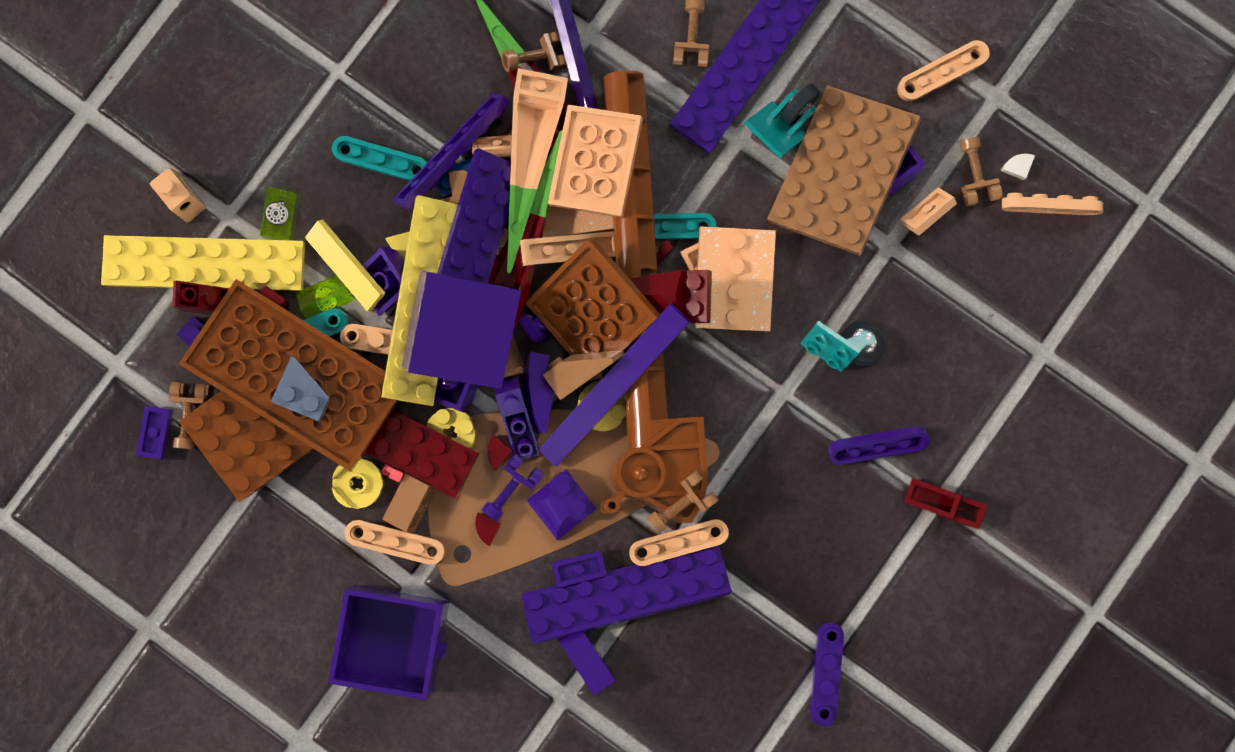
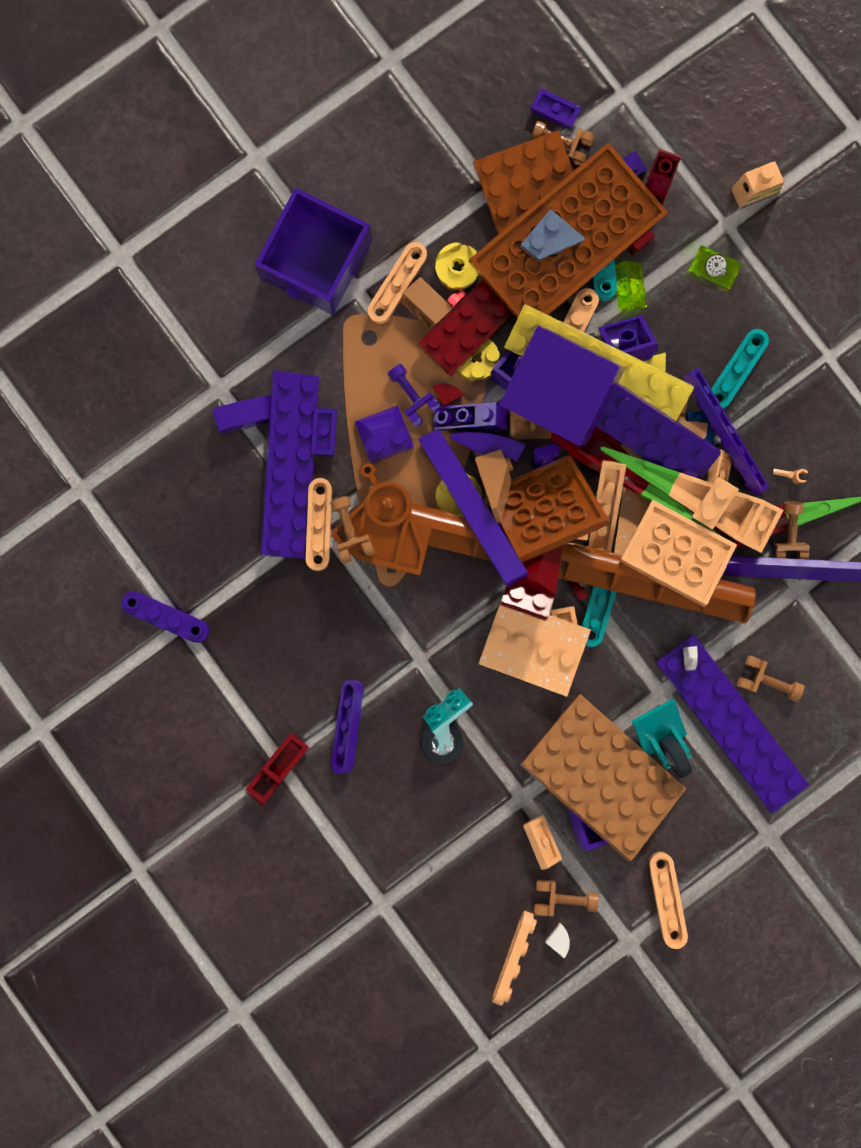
camera: 105 degrees right, 0 degrees up
(206, 261) = (691, 192): light yellow plate -> none
(345, 265) = (652, 310): light yellow tile -> none
(474, 70) = (793, 475): none -> light nougat hand
(486, 528) = (384, 363): dark red tile -> none
(532, 138) = (715, 503): none -> light nougat plate
(696, 118) = (690, 658): none -> white tile

